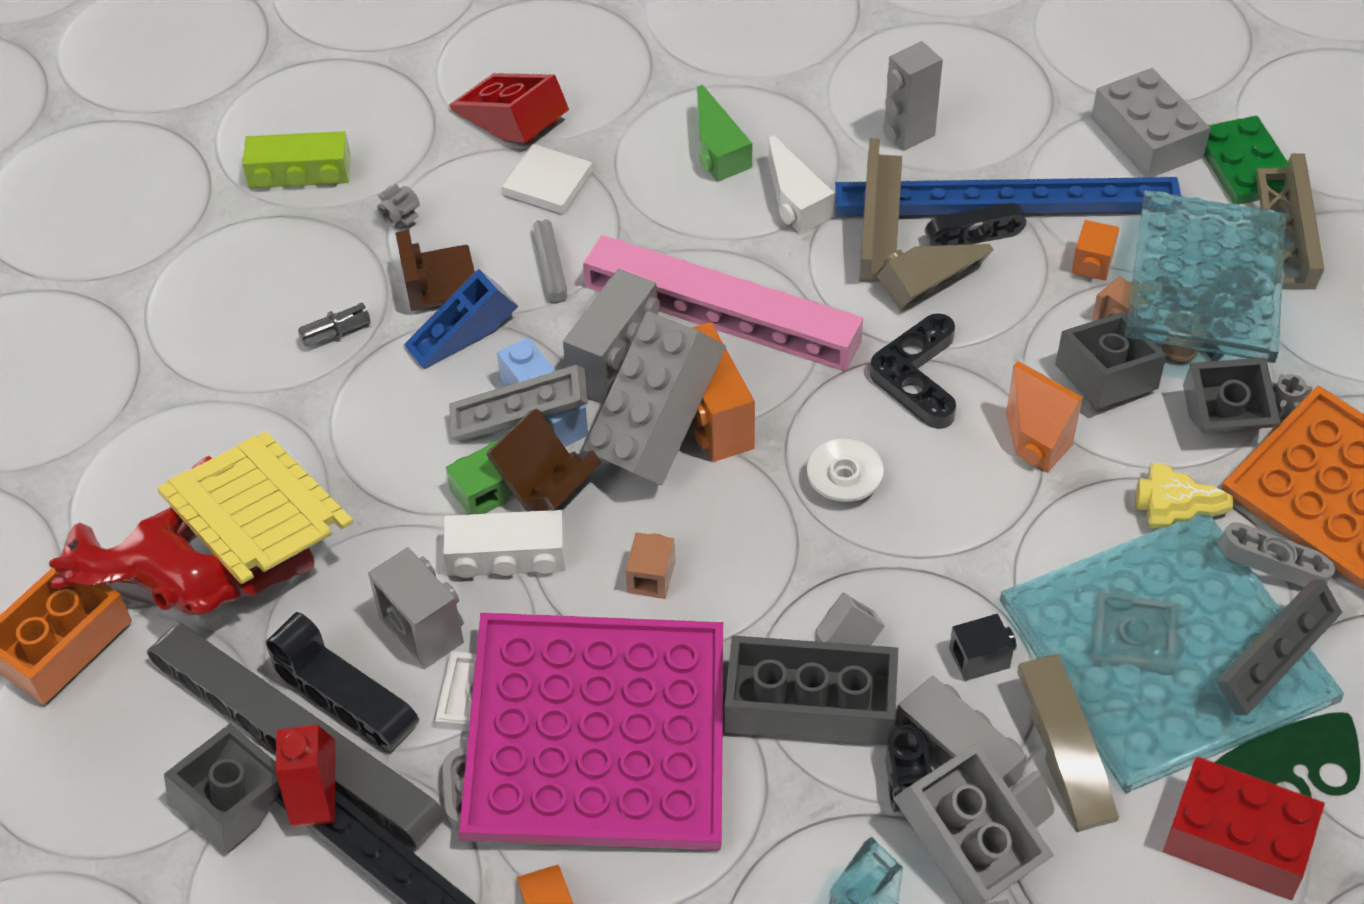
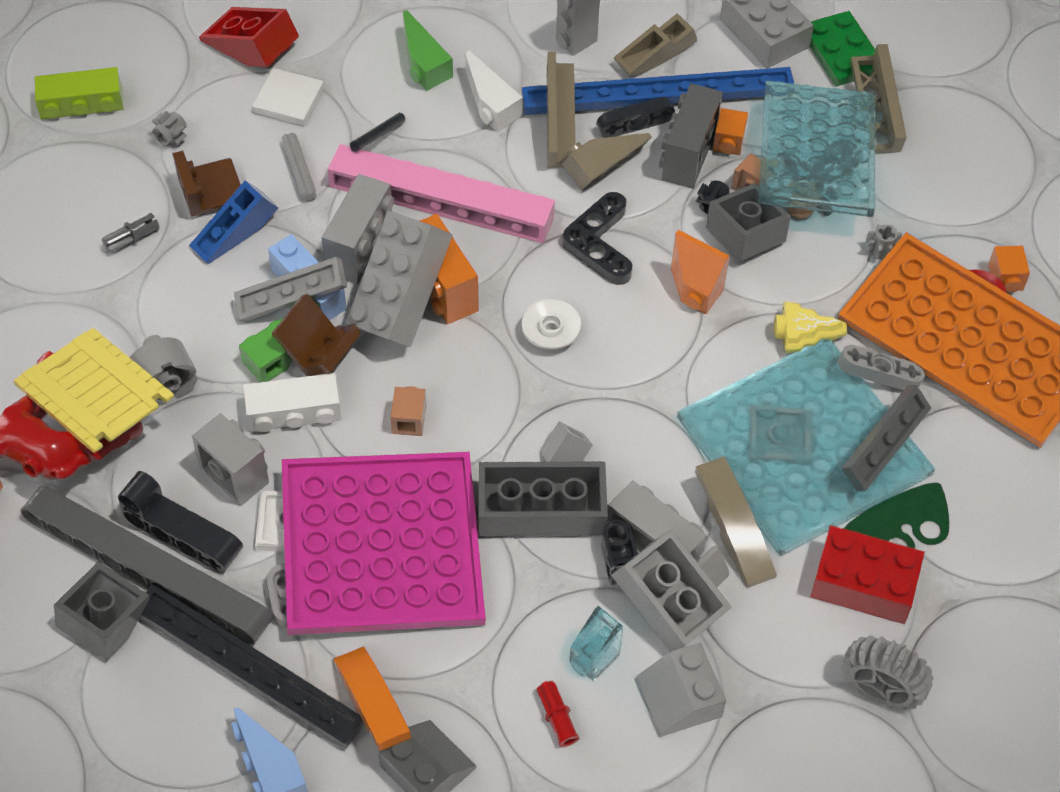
camera: 10 degrees left, 5 degrees up
(306, 774) = (164, 596): red slope -> none
(354, 484) = (167, 363): none -> light grey brick
(650, 224) = (377, 132): none -> black bar
(982, 646) = (667, 454): black brick -> none
(1009, 144) = (656, 46): none -> dark tan slope
(1043, 250) = (690, 135): none -> dark grey brick
(1064, 320) = (709, 193): none -> black gear
(1231, 395) = (841, 244): dark grey slope -> none

